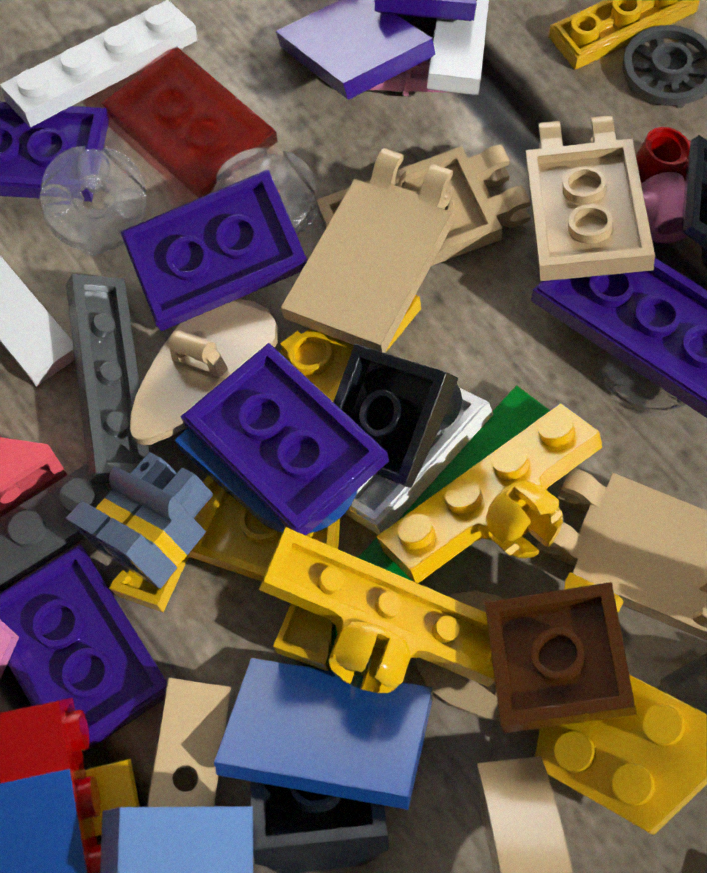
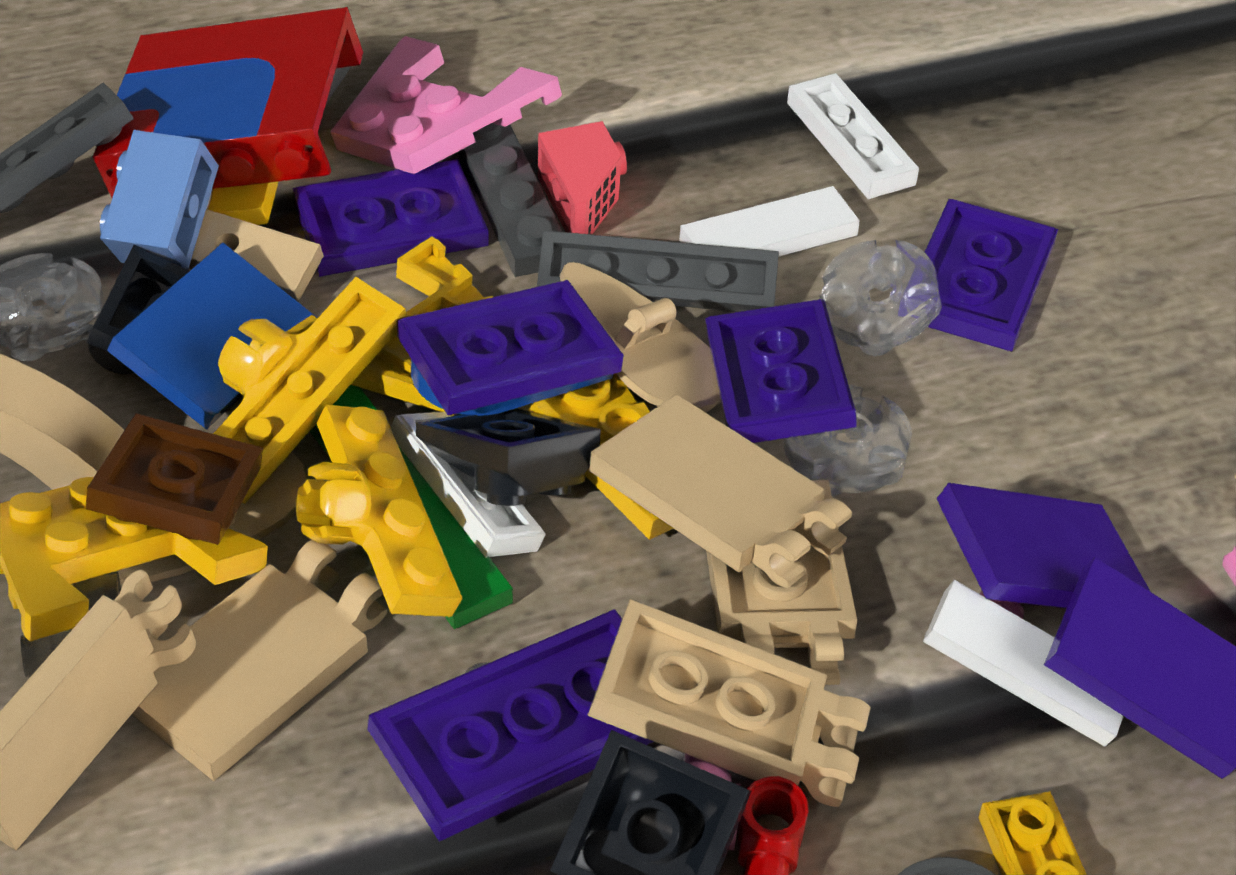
camera: 100 degrees right, 20 degrees down
(98, 63) = (1084, 343): white plate -> none
(146, 518) = (473, 244): sand blue hips -> none
(187, 120) = (987, 408): clear red tile -> none

